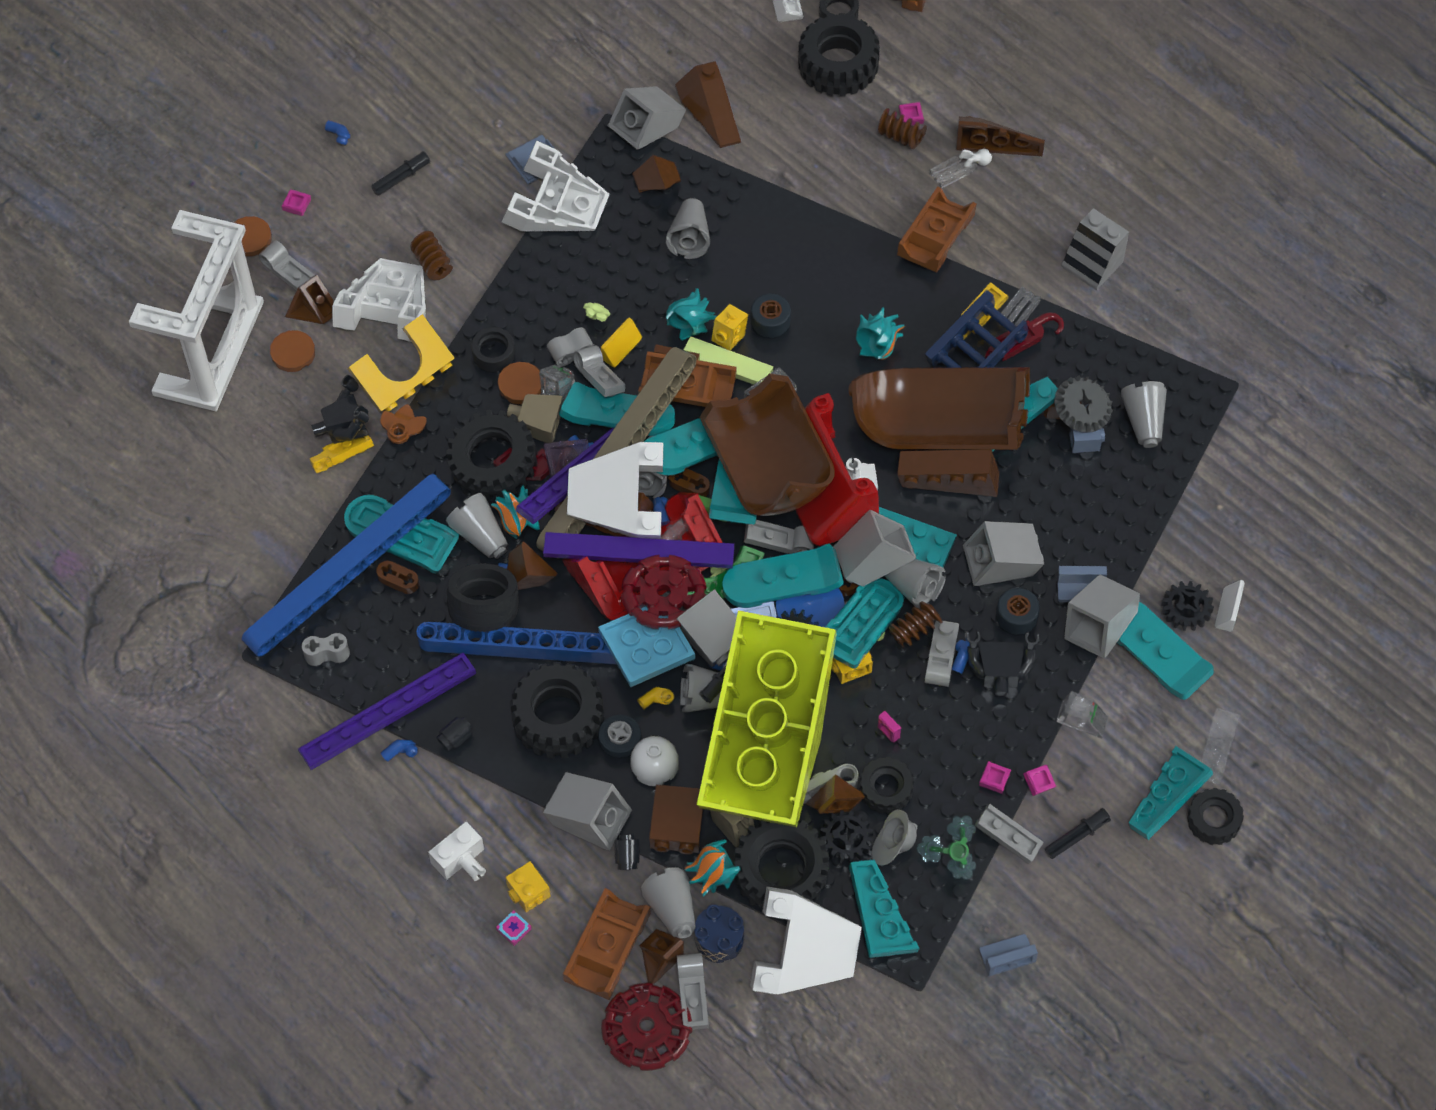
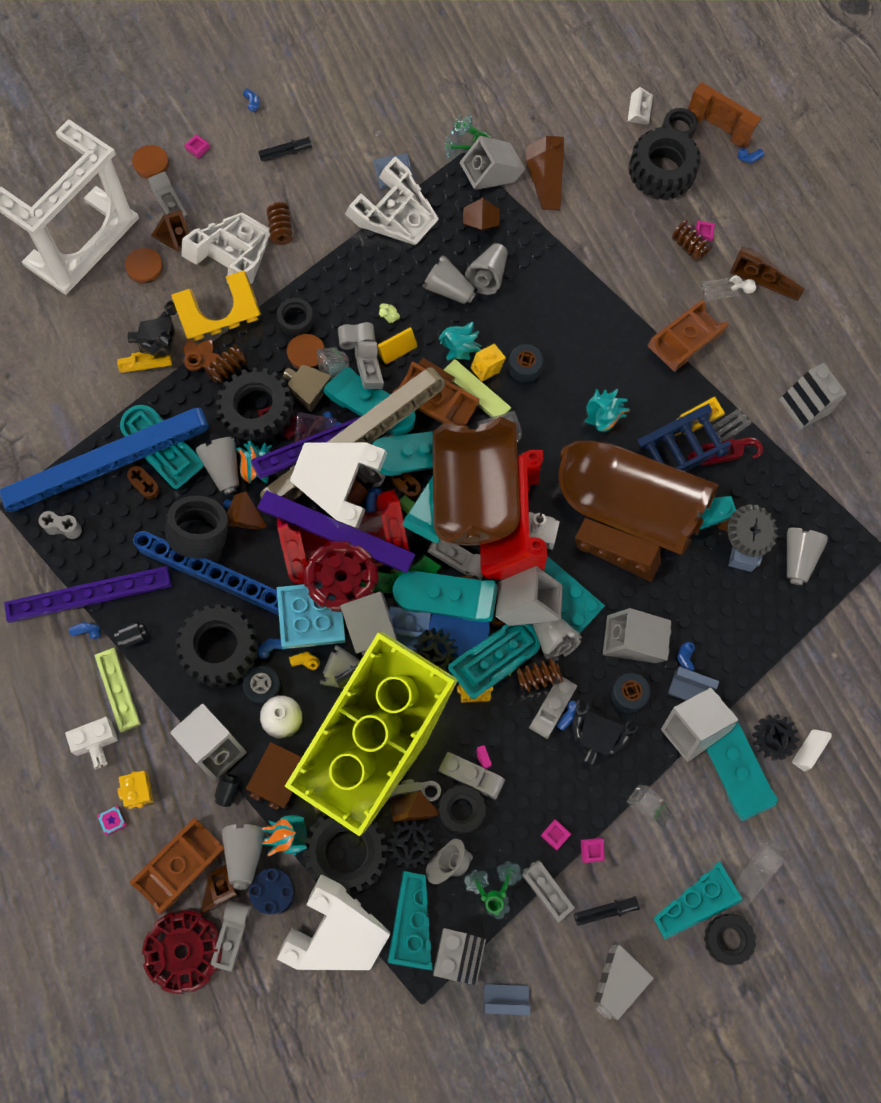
camera: 15 degrees right, 10 degrees up
(438, 421) = (226, 364): none -> reddish brown piece
(461, 798) = (117, 690): none -> yellowish green tile
(601, 83) = (463, 126): none -> clear light blue plant
(612, 693) = (267, 646): none -> blue arm
(651, 256) = (449, 282): none -> light grey cone
(873, 746) = (472, 775): none -> light grey plate
(930, 19) = (744, 156): none -> blue arm
(940, 921) = (459, 957): none -> light grey slope
(1060, 554) = (685, 654): none -> blue arm
(1117, 889) = (620, 983): none -> light grey slope

